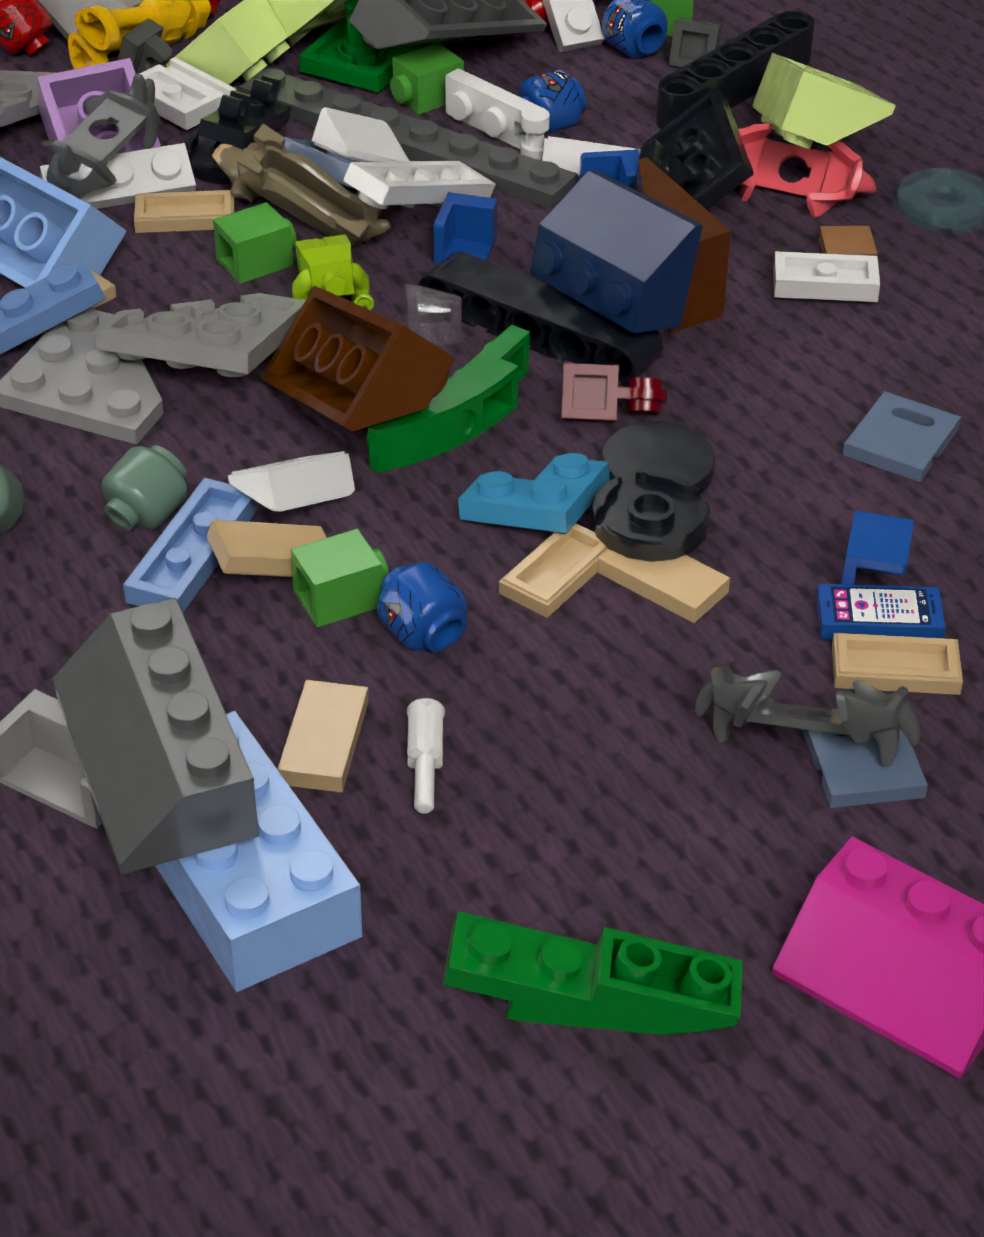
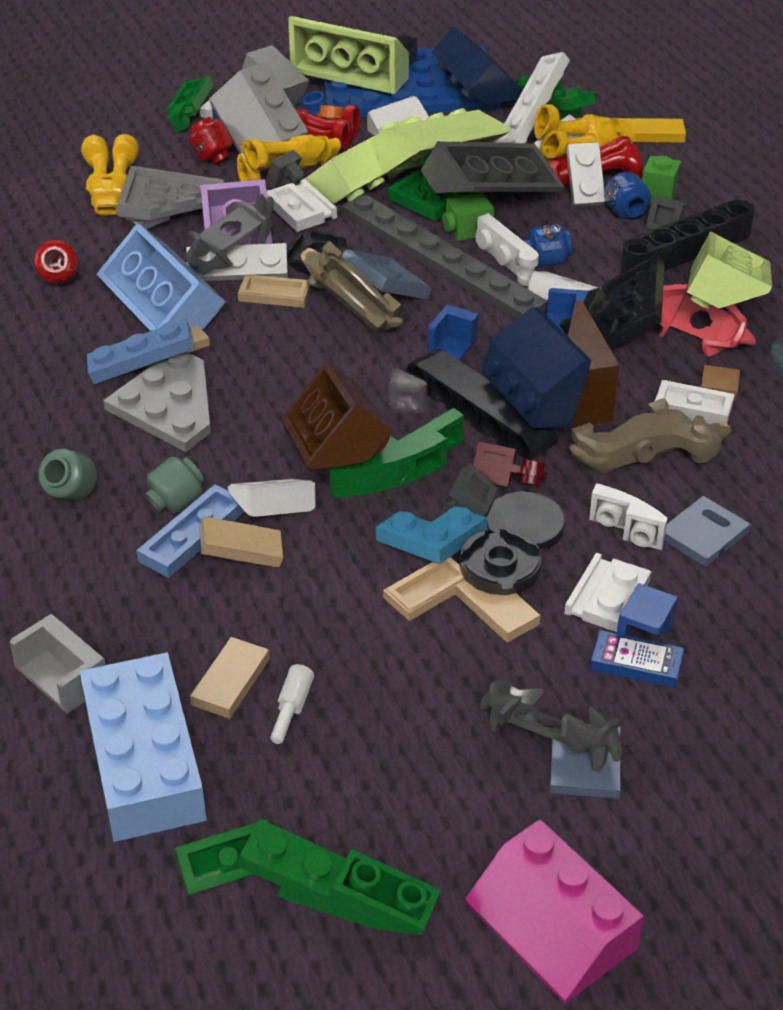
camera: 15 degrees right, 0 degrees up
(155, 740) = (101, 665): dark grey slope -> none
(197, 334) = (249, 381): light grey plate -> none
(243, 114) = (336, 229): black plate -> none
(254, 242) = (309, 320): bright green brick -> none
(330, 267) = (350, 350): lime piece -> none
(338, 576) = (277, 569): bright green brick -> none
(357, 137) = (403, 256): white slope -> none
(400, 984) = (213, 859): none -> green slope
(414, 182) = (426, 294): white plate -> none
(422, 607) = (324, 600): blue head -> none
(575, 430) = (472, 491): none -> dark grey tile
(784, 327) = (648, 437): none -> dark tan animal
(807, 535) = (605, 591): none -> white plate
(816, 433) = (640, 521): none -> white slope
(897, 661) = (635, 698): tan tile -> none

